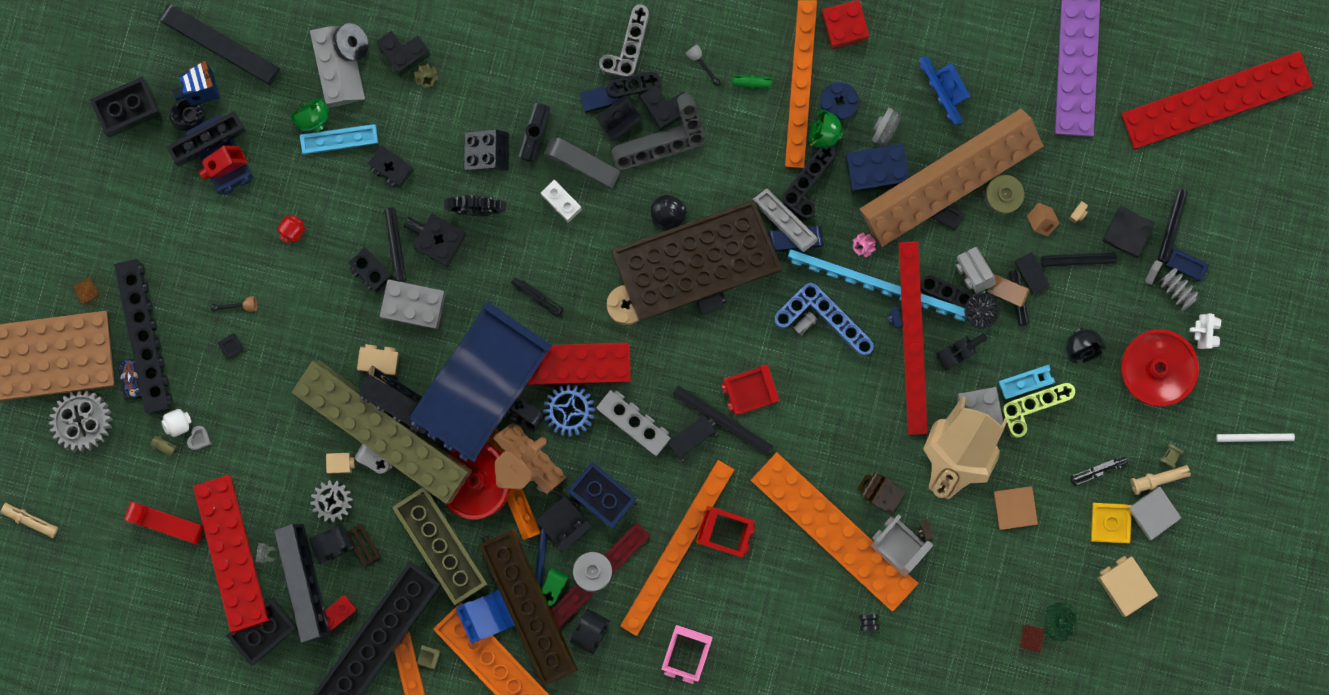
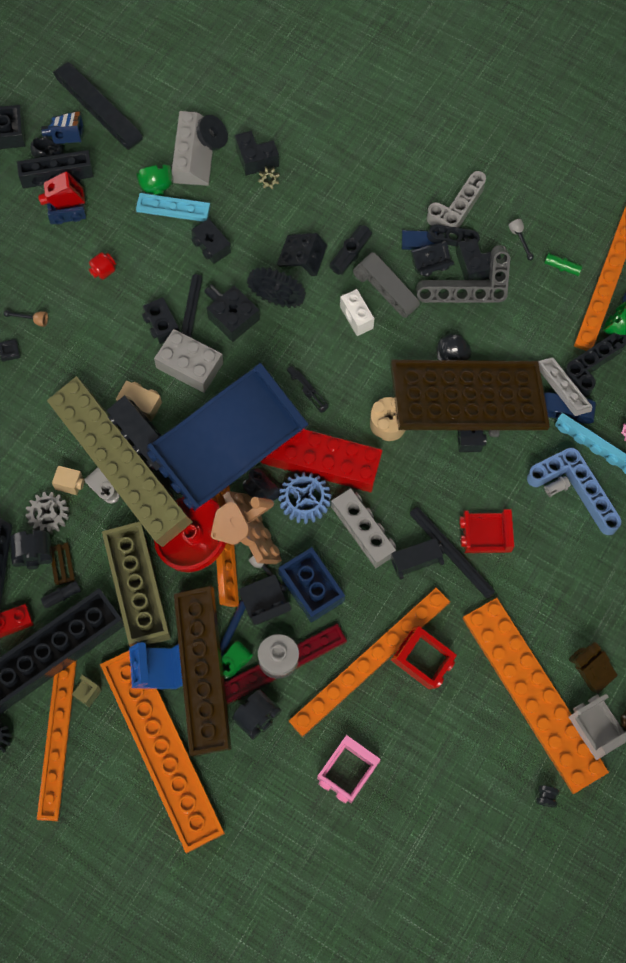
camera: 15 degrees right, 15 degrees down
(372, 574) = (60, 594): none -> black axle

